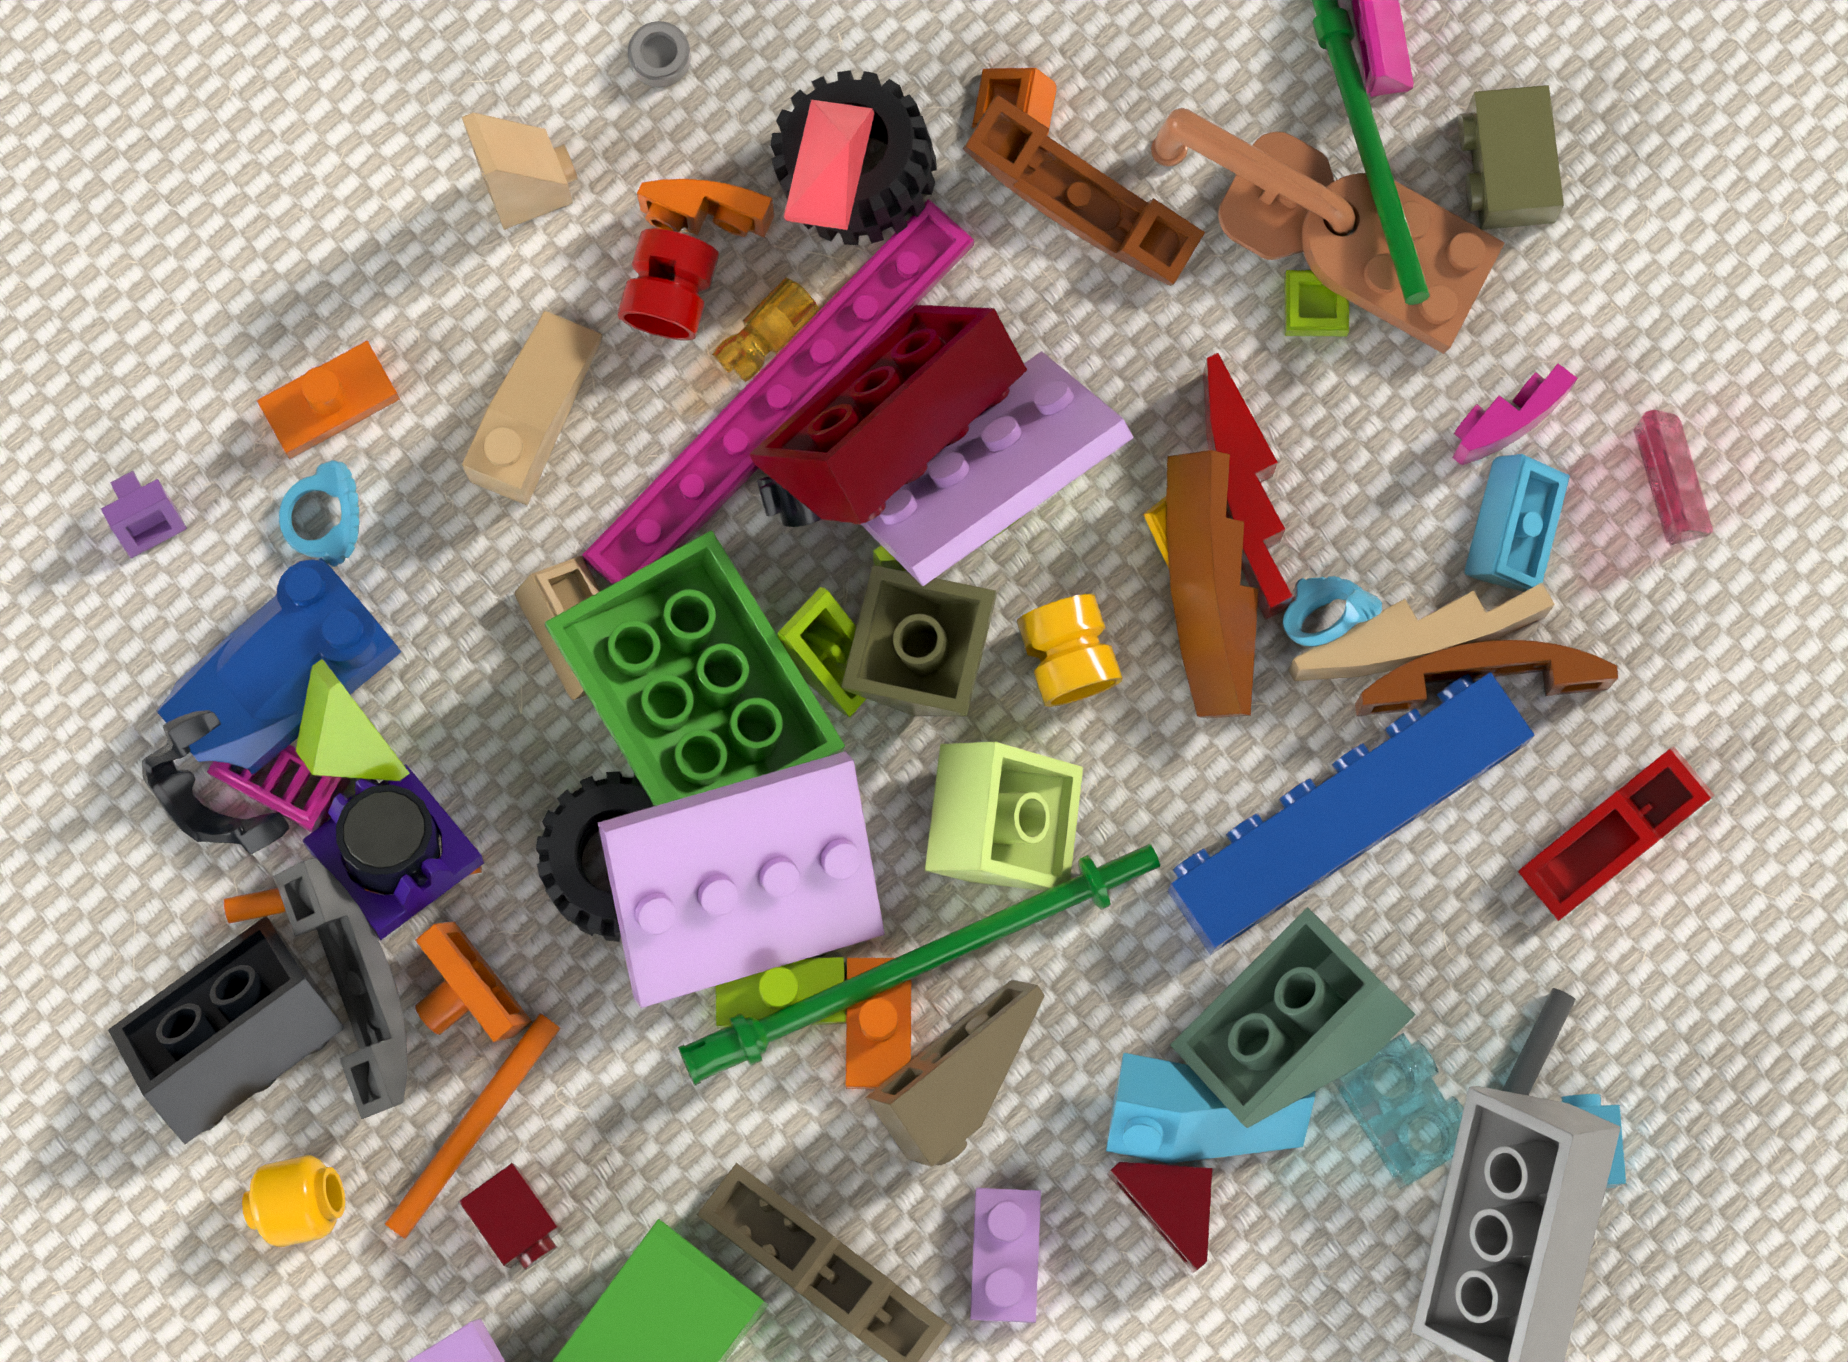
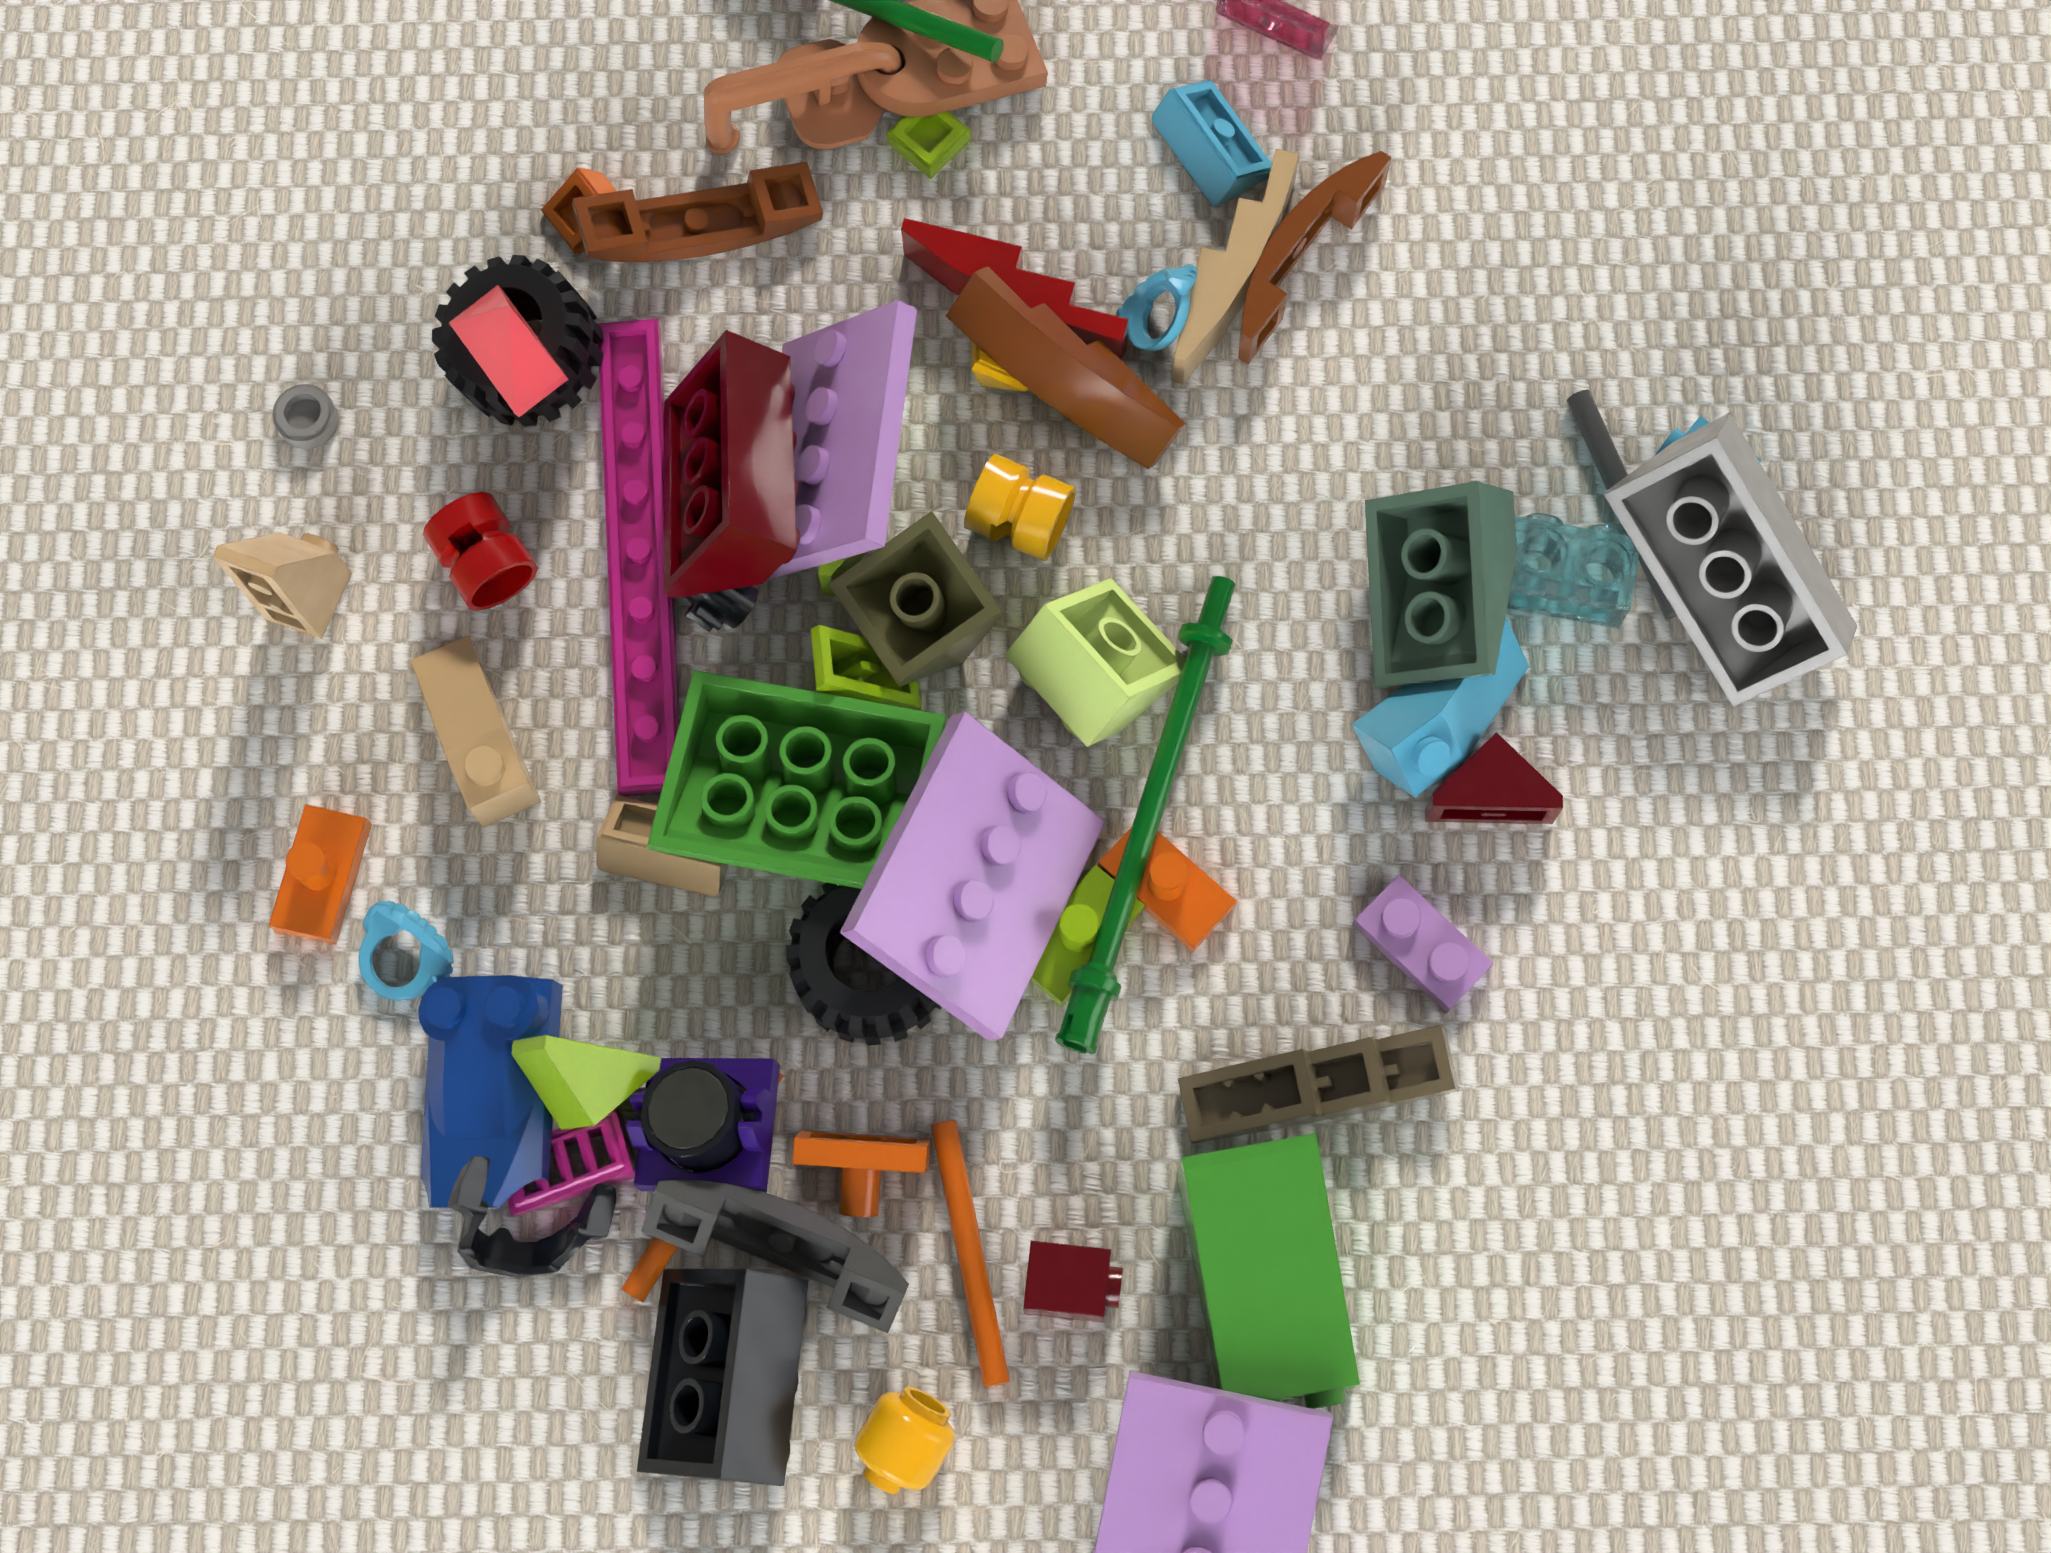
camera: 45 degrees left, 5 degrees down
(142, 514) = (269, 1087): medium lavender tile -> none
(686, 202) = (432, 484): orange slope -> none
(766, 329) = (580, 514): clear yellow bar -> none
(954, 1081) = (1262, 859): dark tan slope -> none
(1349, 812) = (1317, 423): blue brick -> none
(1502, 424) = (1134, 76): dark pink slope -> none
(1616, 833) = (1496, 259): red slope -> none

